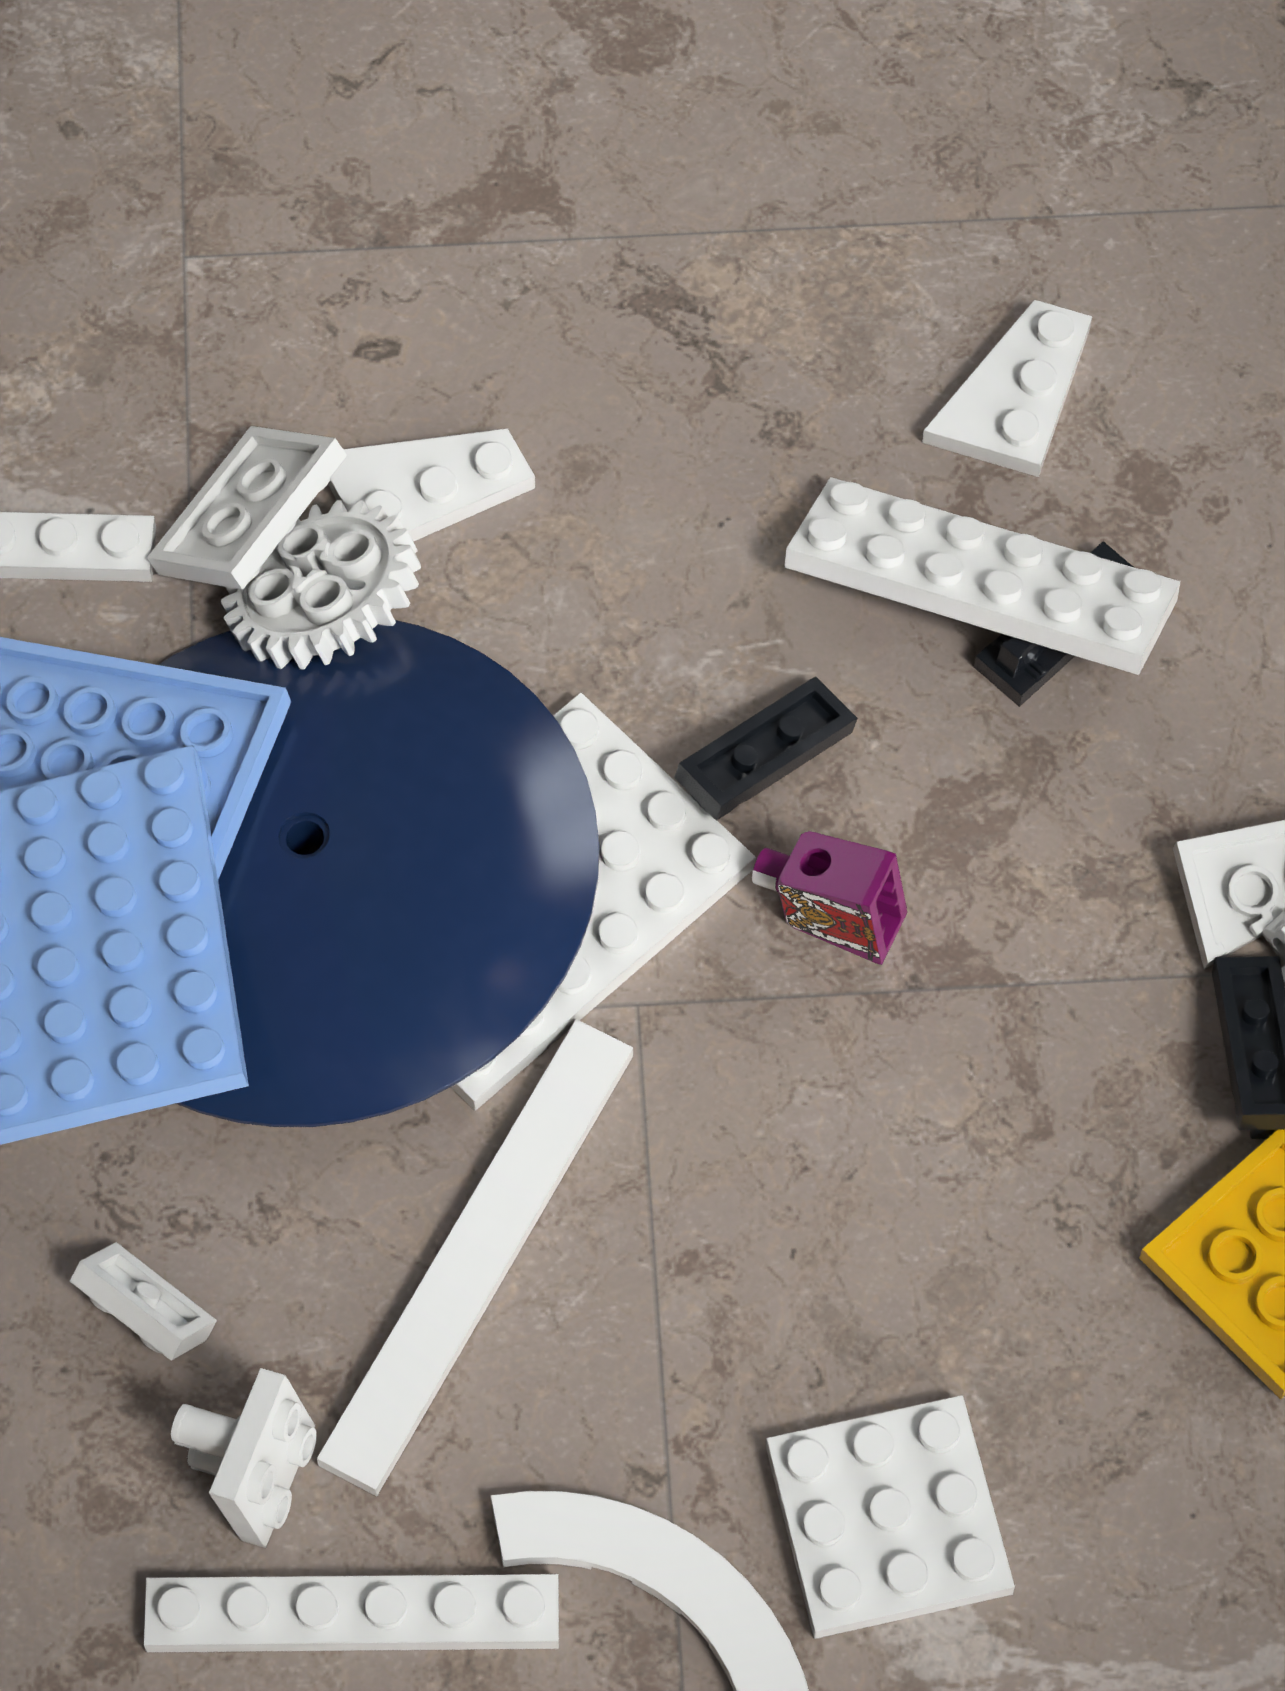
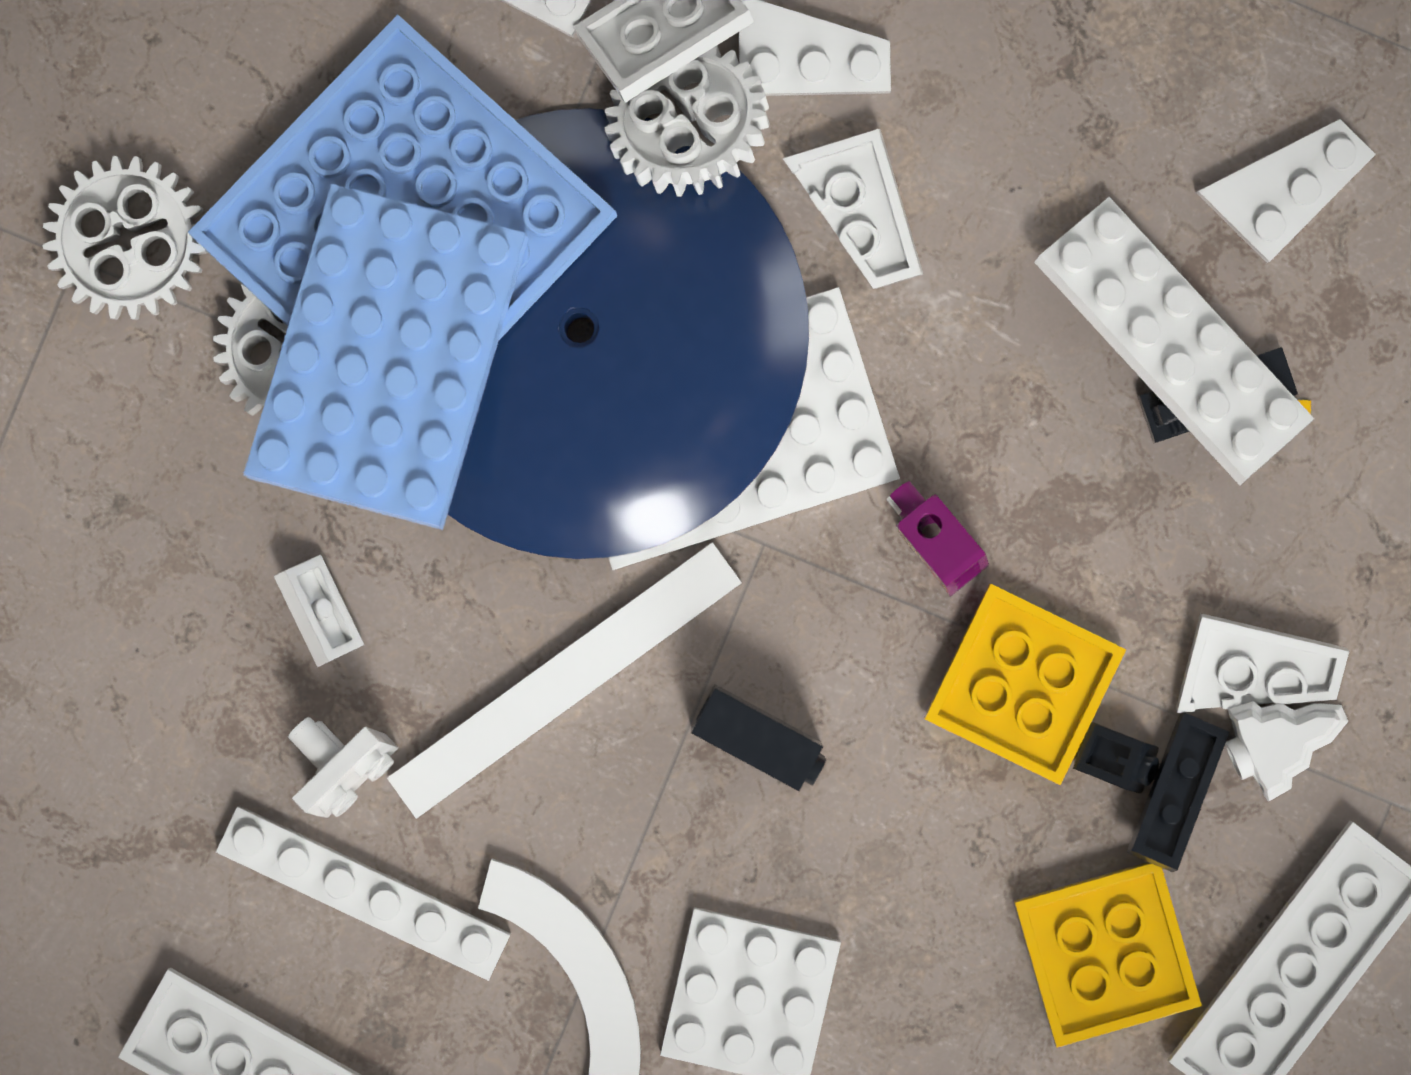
camera: 25 degrees right, 25 degrees up
(561, 599) = (862, 204): none -> white wing
(742, 1192) = (759, 739): none -> black brick
(765, 748) = (948, 399): black hinge -> none
(1018, 1010) = (1024, 684): none -> yellow plate
(1169, 1039) = (1117, 758): none -> black bracket

